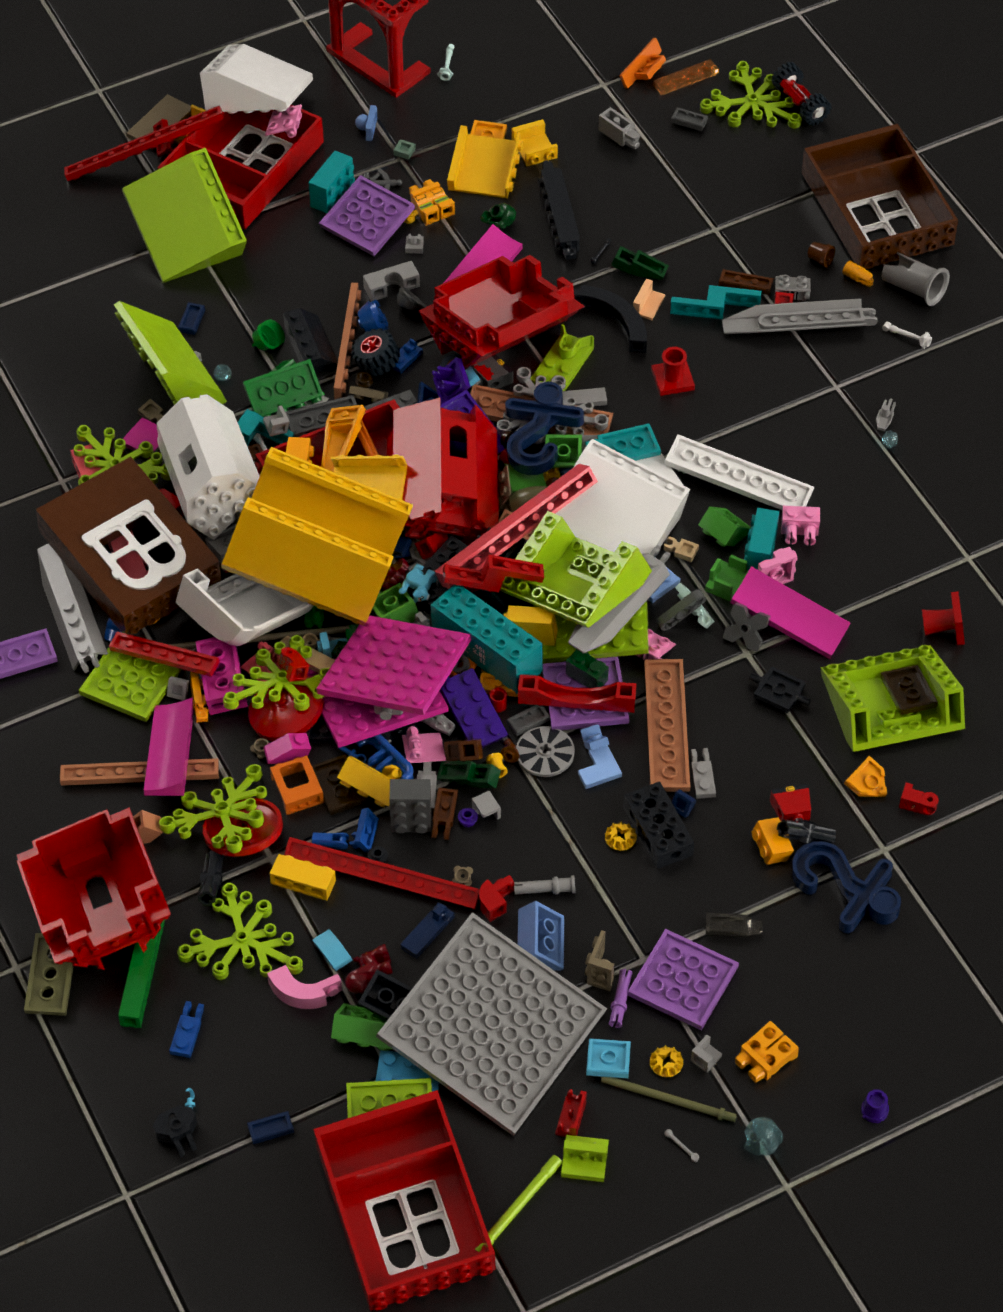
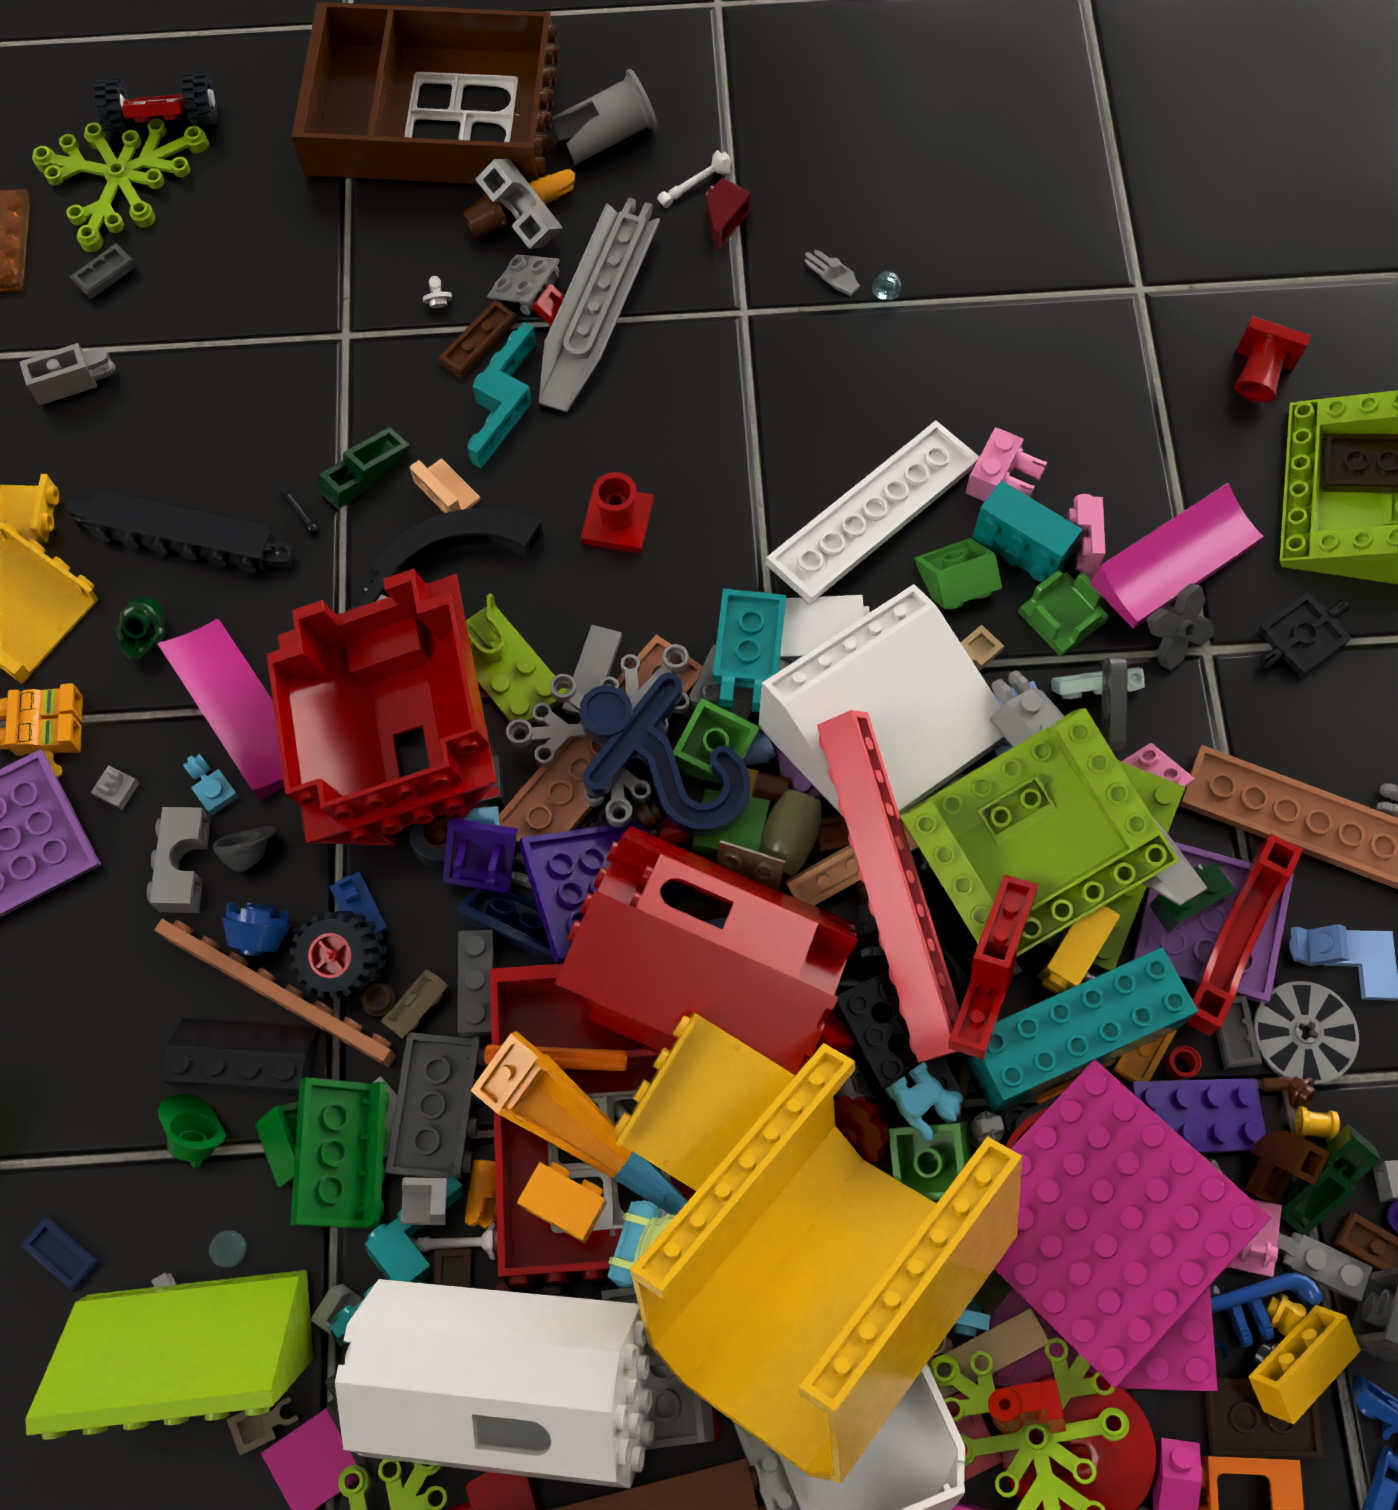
camera: 65 degrees left, 15 degrees up
(434, 279) = (212, 790): none -> medium azure plate
(761, 252) = (436, 298): none -> white plate
(839, 249) = (508, 186): none -> light grey arch
(891, 352) = (726, 209): none -> dark red slope

